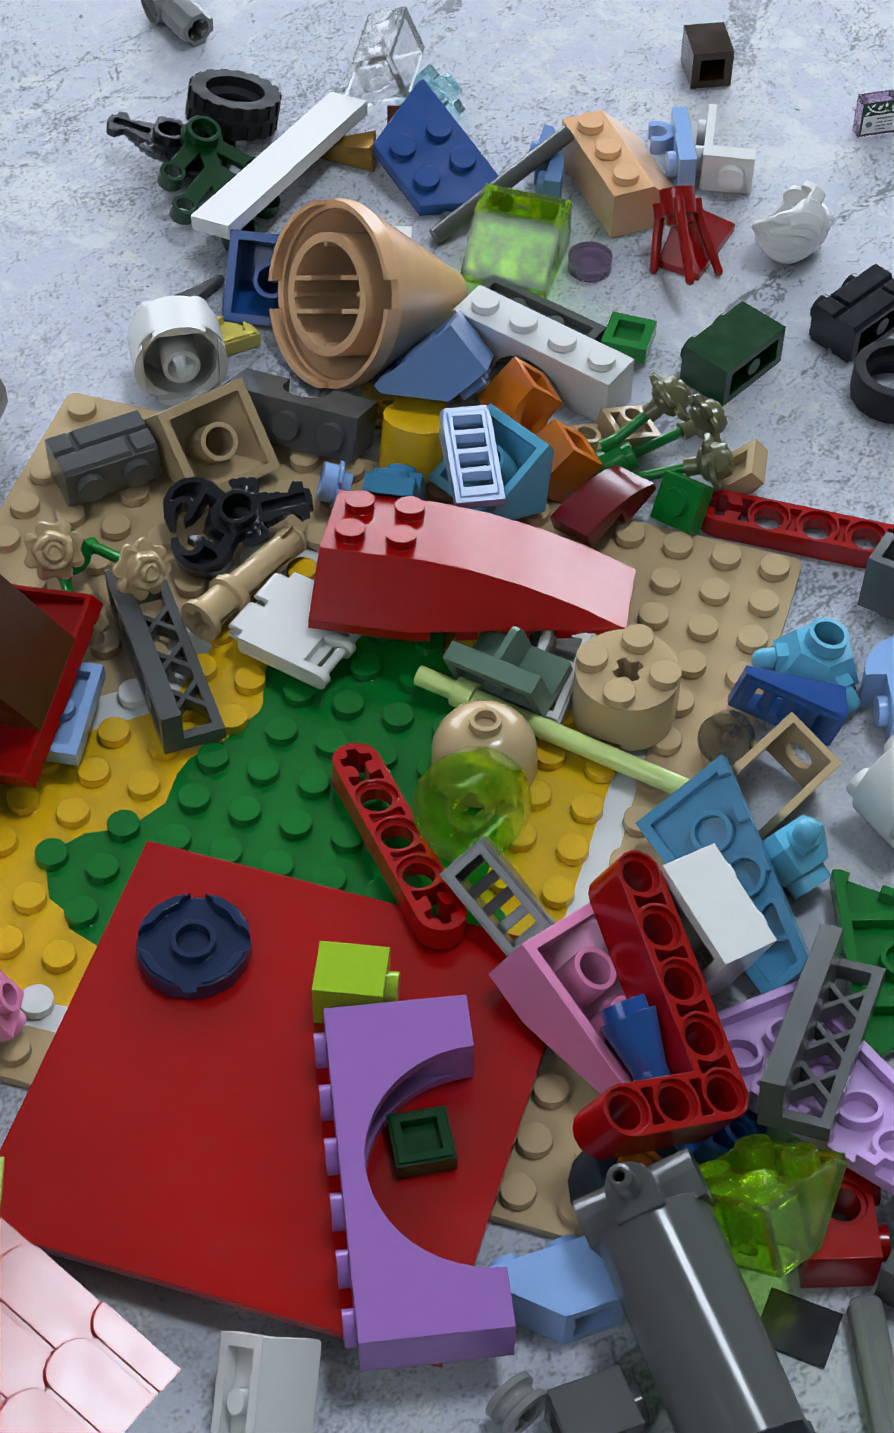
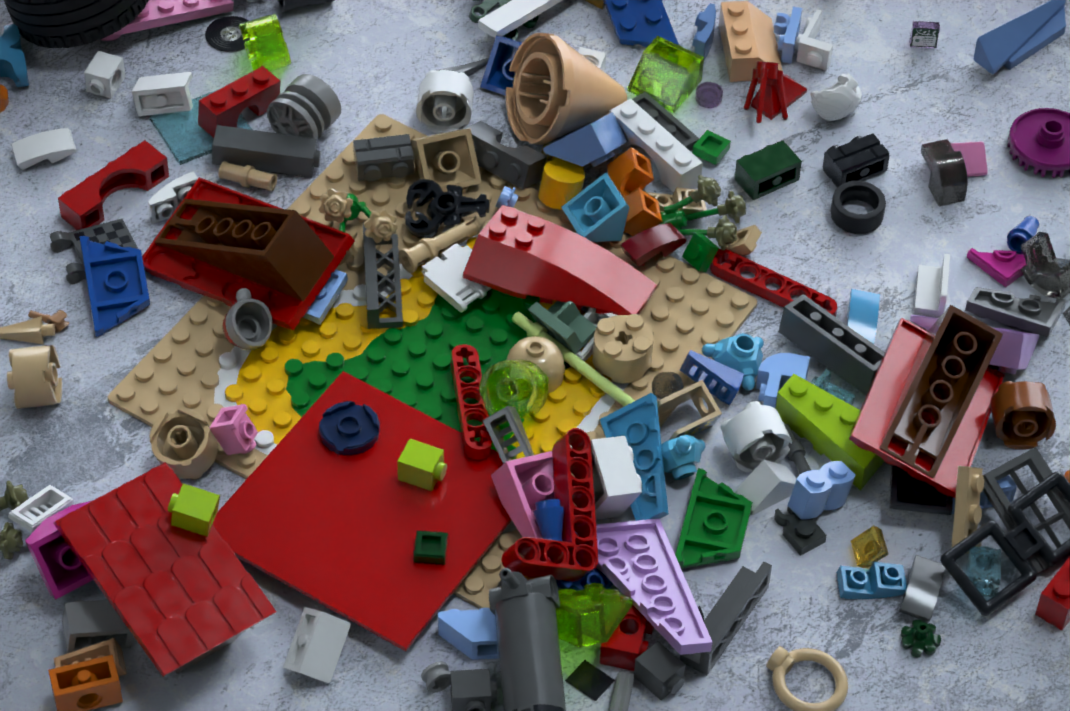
camera: 15 degrees right, 0 degrees up
(238, 337) = (483, 98): light yellow tile -> none
(395, 481) = (539, 207): dark azure slope -> none
(404, 1299) = (394, 613): medium lavender arch -> none
(467, 428) = (582, 184): light blue slope -> none
(508, 179) = (675, 34): dark grey bar -> none
(803, 1024) = (640, 542): dark grey fence -> none

